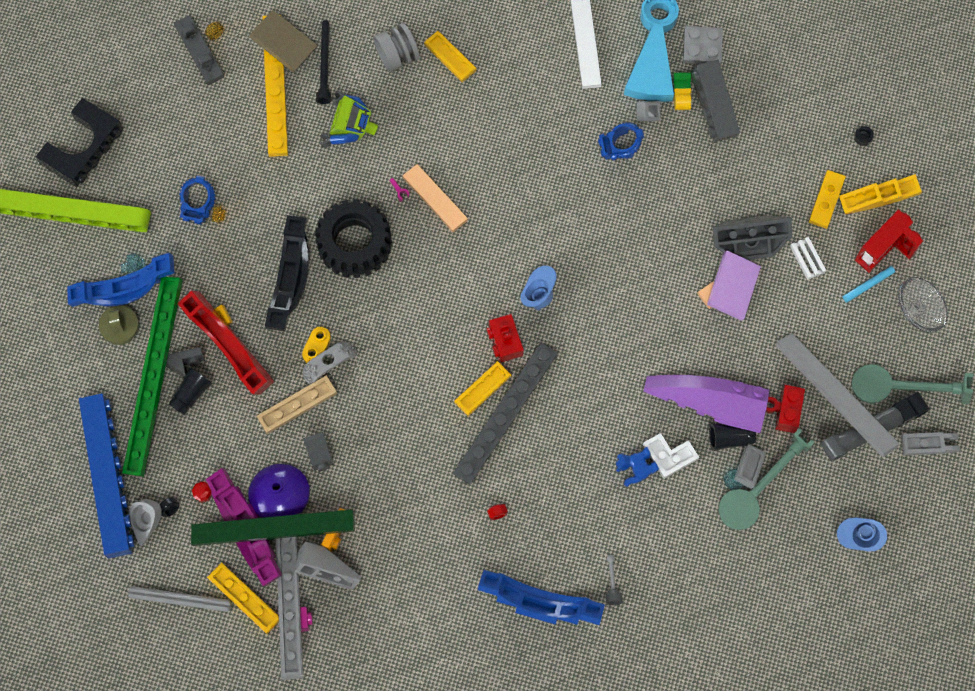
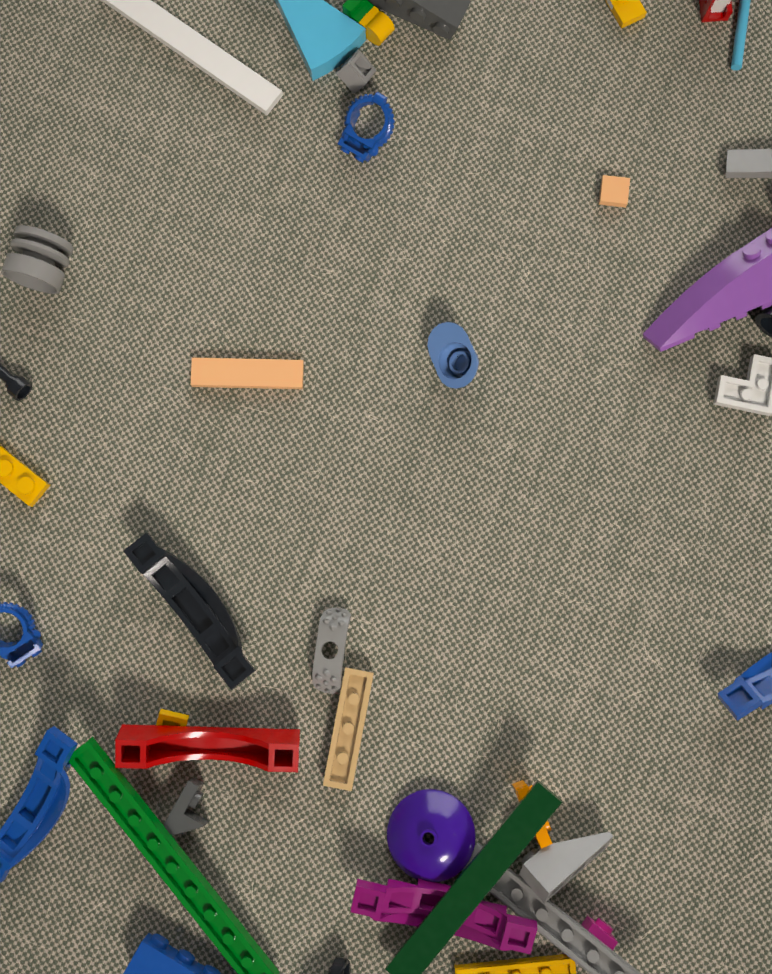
camera: 45 degrees left, 10 degrees up
(118, 325) = (75, 845): olive tile -> none
(133, 264) = (19, 769): clear light blue tile -> none
(189, 391) = (227, 835): black plant -> none
(201, 492) = (353, 923): red tile -> none
(218, 214) = (48, 622): clear yellow plate -> none
(315, 344) = (300, 646): yellow plate -> none
(318, 452) = (428, 755): dark grey slope -> none
(348, 215) = (189, 474): black tyre -> none
(349, 121) = (75, 385): torso -> none
(399, 190) = (202, 402): dark pink hand -> none
(450, 56) = (101, 214): yellow plate -> none
(482, 388) = (508, 513): yellow plate -> none
(497, 511) = (658, 619): red tile -> none
(505, 338) = (474, 440): red brick -> none
(505, 413) = (555, 514): dark grey plate -> none
(638, 464) = (740, 429): blue animal -> none
(734, 285) = (627, 159): lavender tile -> none
(753, 236) = (594, 90): dark grey wedge -> none
(801, 243) = (660, 58): white tile -> none

